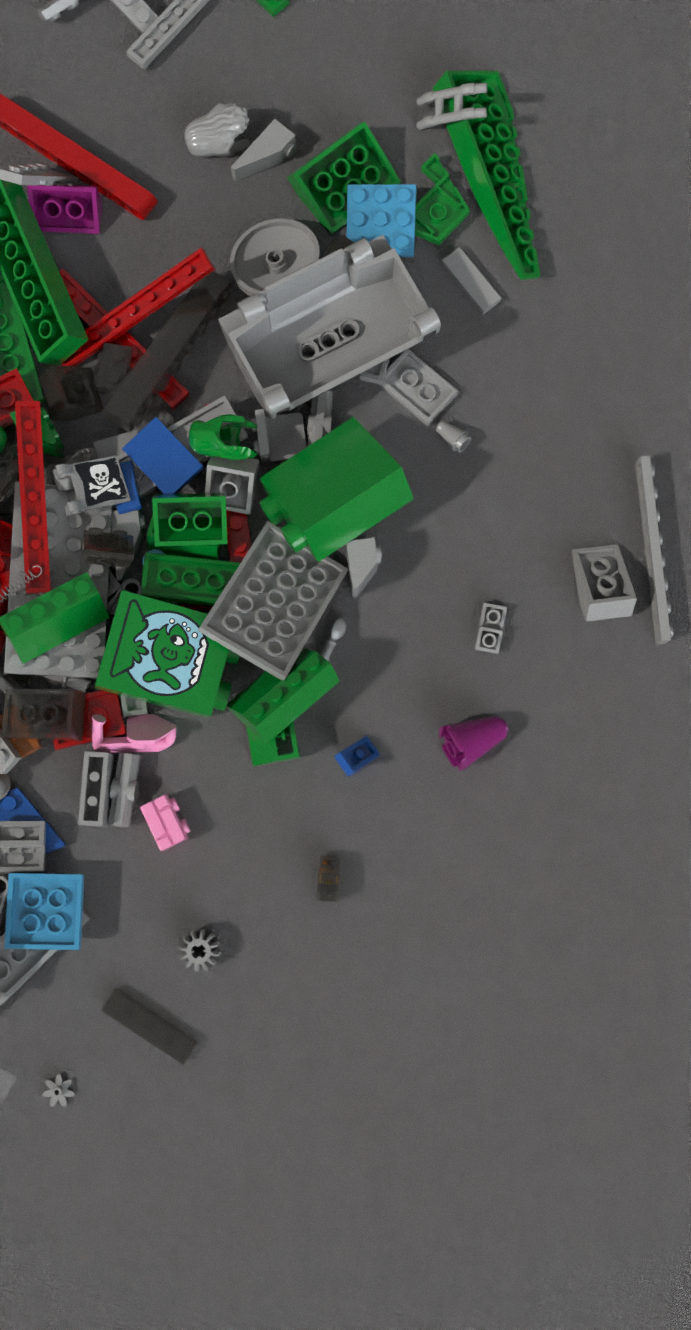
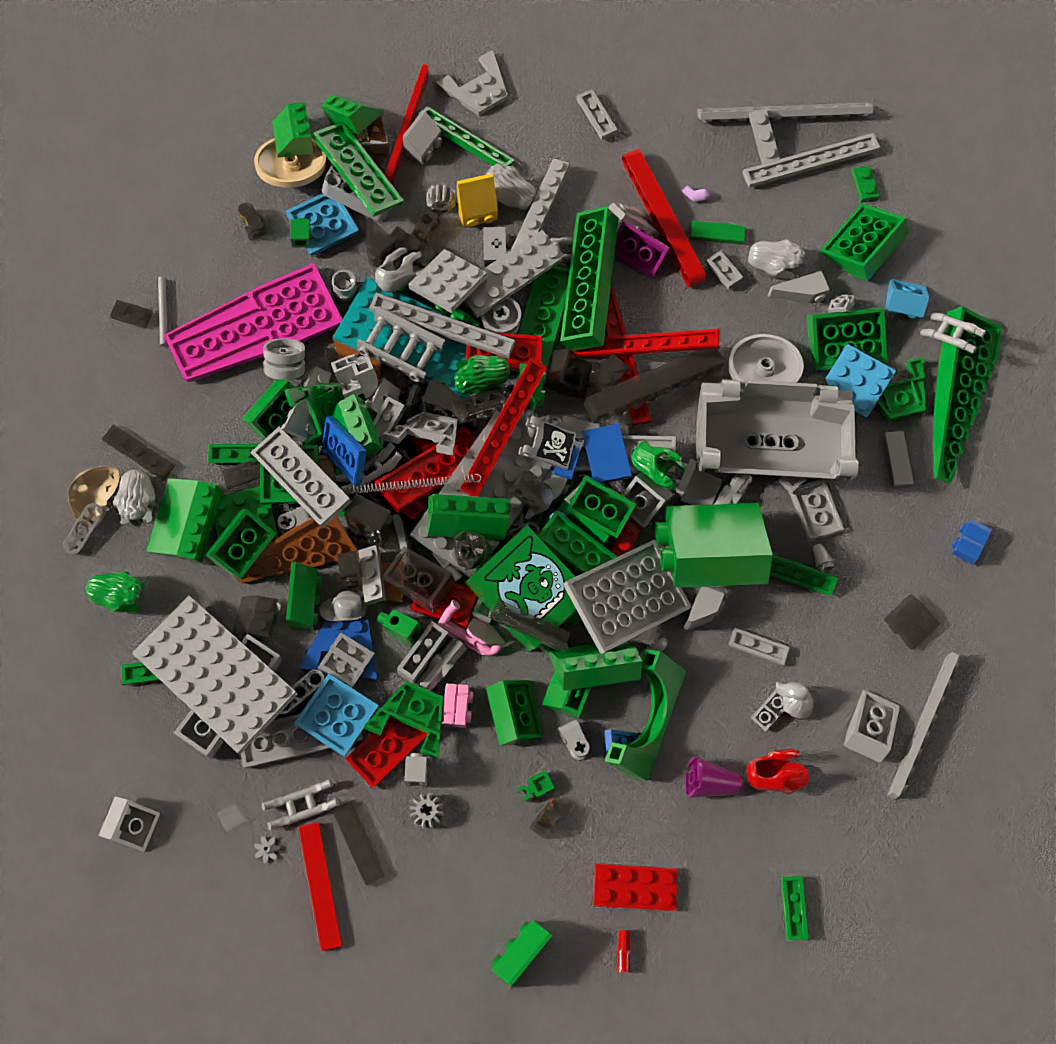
camera: 25 degrees right, 10 degrees down
(55, 776) = (401, 627): none -> green torso
(65, 1040) = (293, 815): none -> light grey piece
(80, 650) = (471, 550): none -> clear smoke cylinder
(92, 111) = (697, 195): none -> lavender arm
(119, 907) = (382, 753): none -> red plate
(121, 853) = (415, 708): none -> green wing
(137, 1094) = (320, 886): none -> red tile
(139, 139) = (717, 232): none -> green tile
(163, 917) = (416, 770): none -> light grey brick
(170, 178) = (724, 270): none -> light grey plate
(190, 696) = (530, 625): none -> clear smoke fence
(229, 791) = (514, 712): none -> green slope
(299, 852) = (538, 785): none -> green plate
(303, 57) = (865, 241): none -> green slope
(305, 779) = (573, 736): none -> light grey piece
(317, 143) = (842, 304): none -> light grey slope
(367, 666) = (665, 683): none -> green arch
(382, 97) = (906, 298): none -> dark azure slope
(382, 1036) = (520, 952): none -> slope
(441, 568) = (759, 646): none -> light grey tile
(443, 466) = (803, 575): none -> green plate
(458, 895) = (635, 887): none -> red plate
(484, 967) = (623, 951): none -> red axle
(510, 602) = (796, 699): none -> light grey hair
(535, 690) = (776, 773): none -> red hair
(581, 448) = (912, 621): none -> clear smoke slope
(595, 326) = (971, 541): none -> blue brick
(629, 818) = (794, 908): none -> green plate

